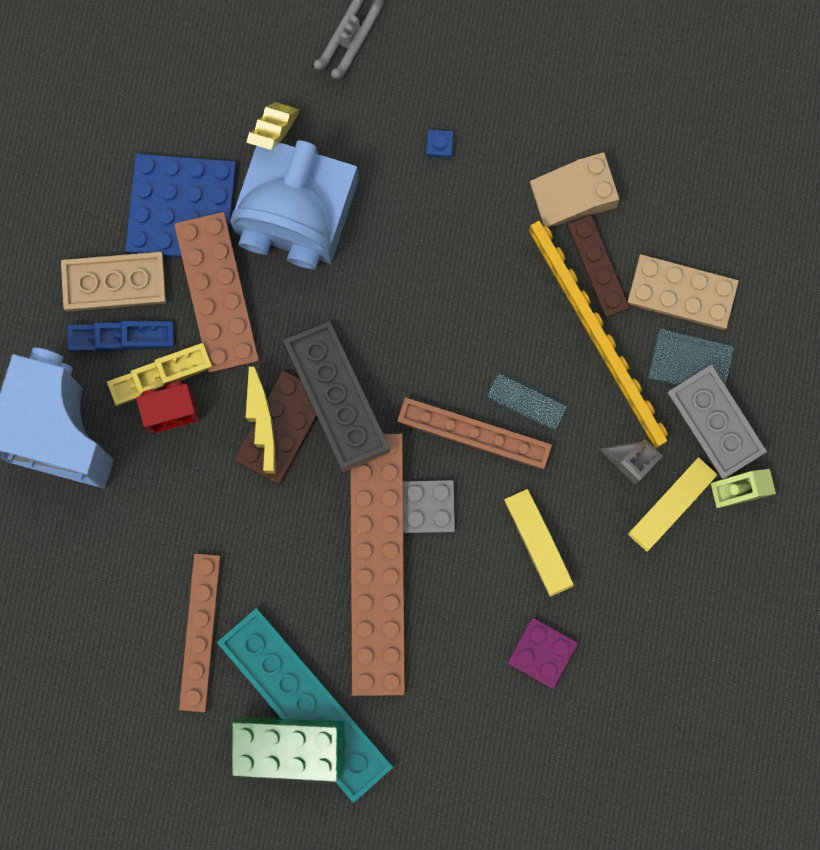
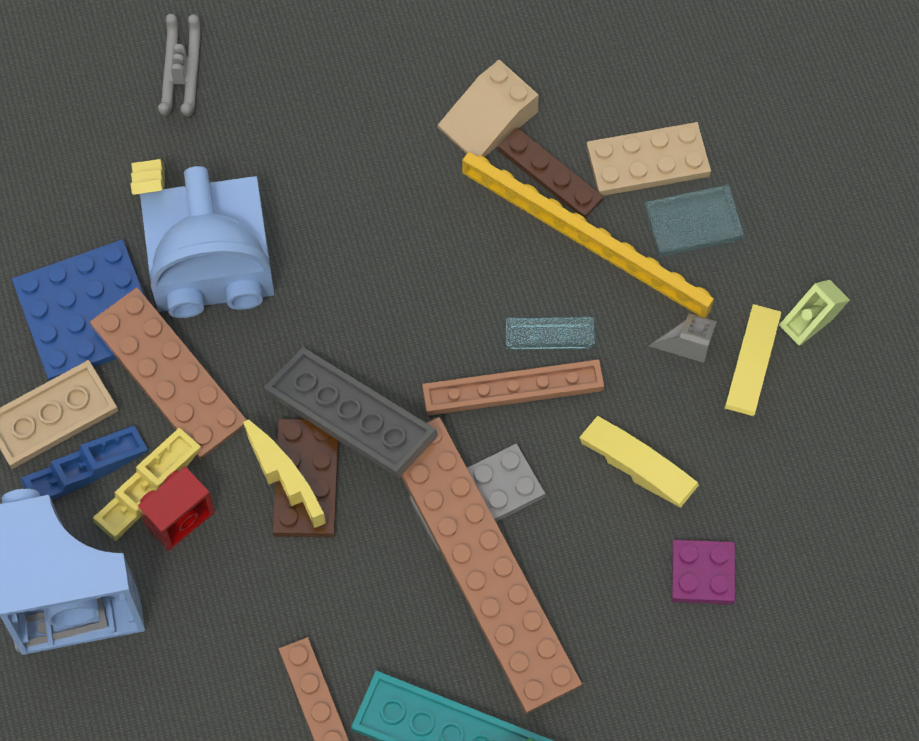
camera: 30 degrees left, 15 degrees down
(439, 143) = (327, 131): blue plate -> none
(716, 421) = (752, 260): light grey plate -> none

